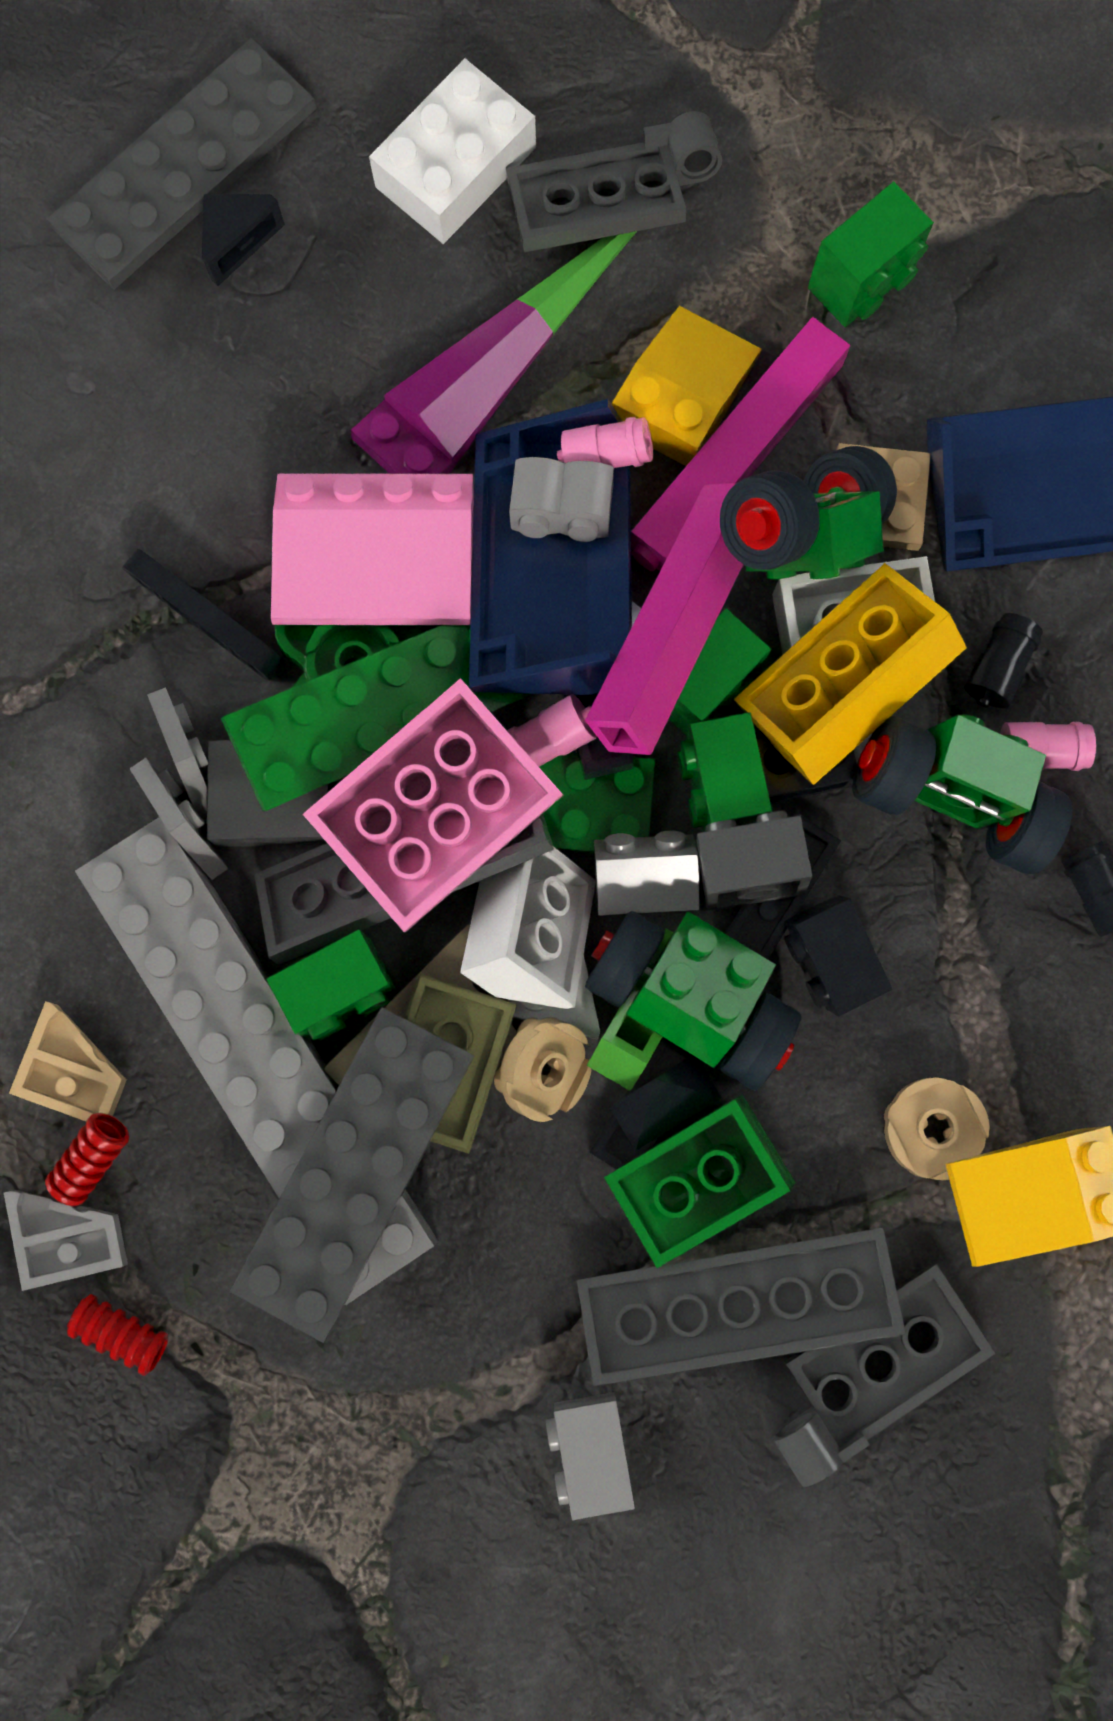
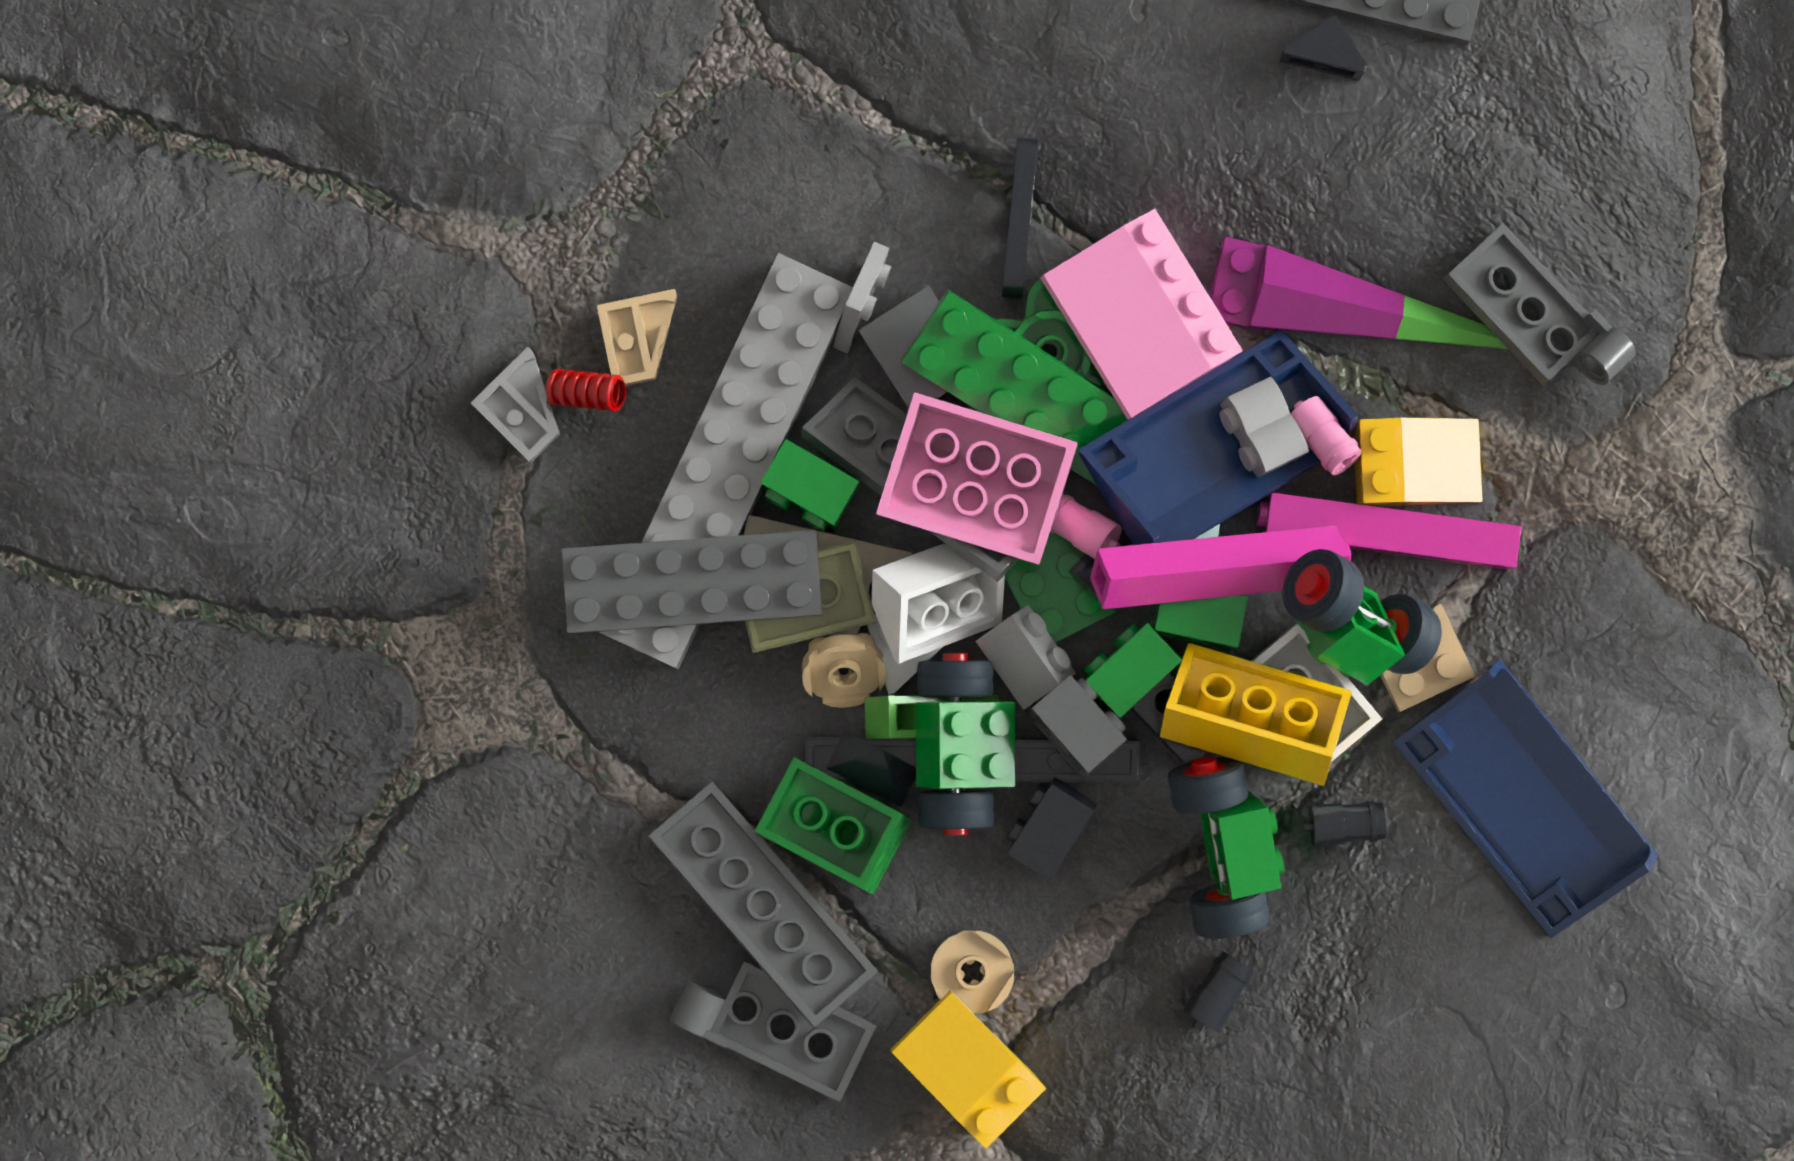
camera: 55 degrees right, 5 degrees up
(117, 1334) = (481, 487): red piece -> none
(185, 753) = (908, 276): light grey wing -> none
(453, 150) = (1491, 176): white brick -> none
(592, 1456) = (600, 864): light grey brick -> none
(870, 255) = (1596, 541): green brick -> none
(1065, 745) = (1303, 892): bright pink piece -> none

